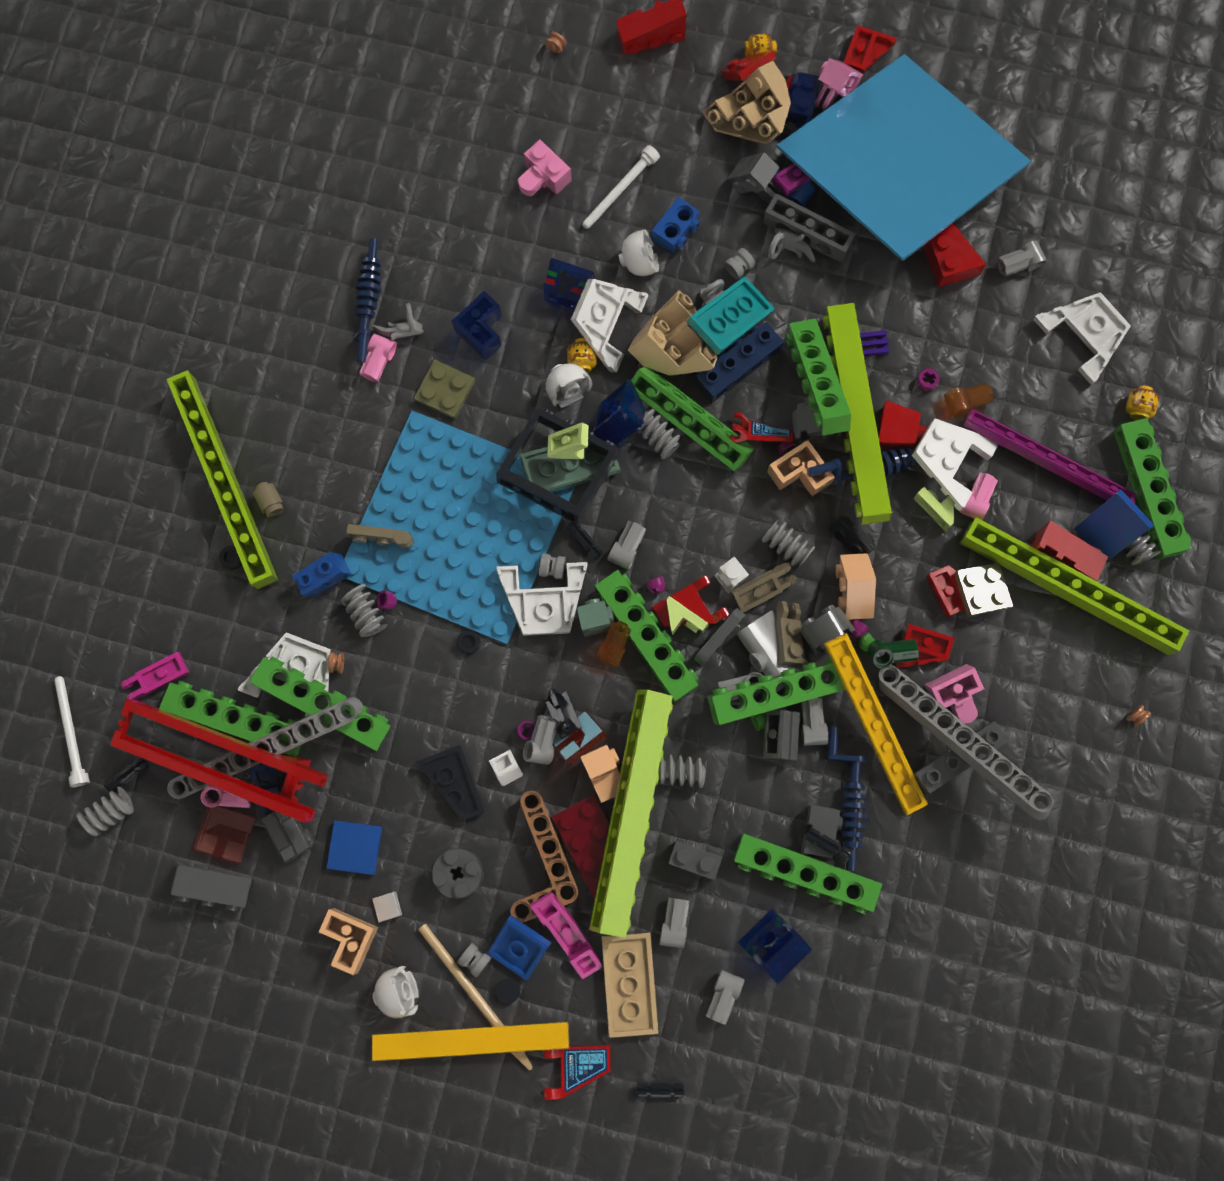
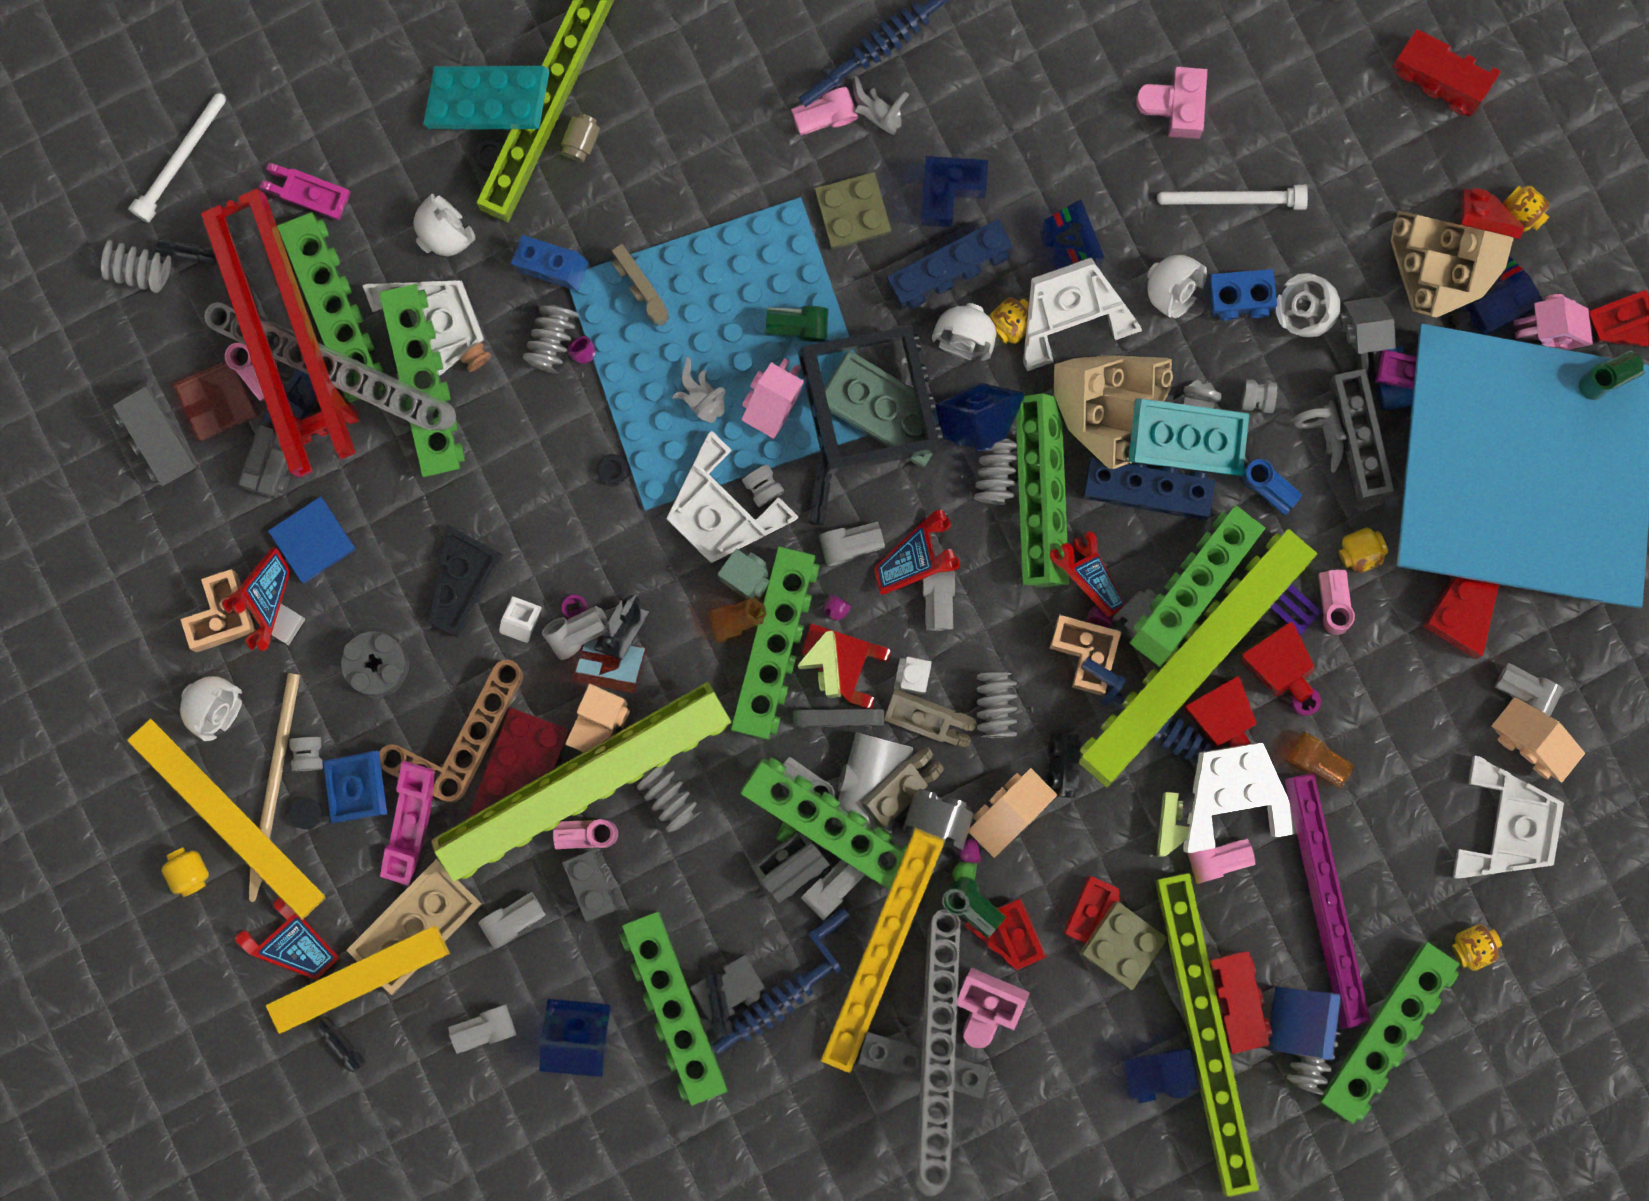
camera: 45 degrees right, 5 degrees up
(198, 528) = (486, 97): none -> teal plate
(246, 618) = (440, 228): none -> white cylinder
(360, 904) = (262, 595): none -> flag
(473, 557) = (701, 399): none -> light grey piece
(480, 1094) = (185, 872): none -> yellow head
(484, 464) = (807, 323): none -> dark green piece
(510, 516) = (772, 397): none -> bright pink brick
(521, 362) = (950, 264): none -> dark blue brick
(568, 442) = (897, 391): yellowish green slope -> none
(632, 1046) = (357, 979): none -> yellow tile
(660, 840) = (582, 834): none -> bright pink piece
(666, 518) = (915, 556): none -> flag
(695, 520) = (939, 595): none -> light grey piece
(714, 195) = (1308, 305): none -> white cylinder
(795, 298) = (1273, 488): none -> blue piece
(871, 280) = (1363, 550): none -> yellow head
(885, 316) = (1335, 598): none -> bright pink piece
(889, 76) = (1611, 375): none -> dark green piece
(897, 373) = (1282, 663): none -> red torso
(1055, 272) = (1538, 739): none -> light nougat brick
(1074, 627) = (1158, 1073): none -> clear blue brick

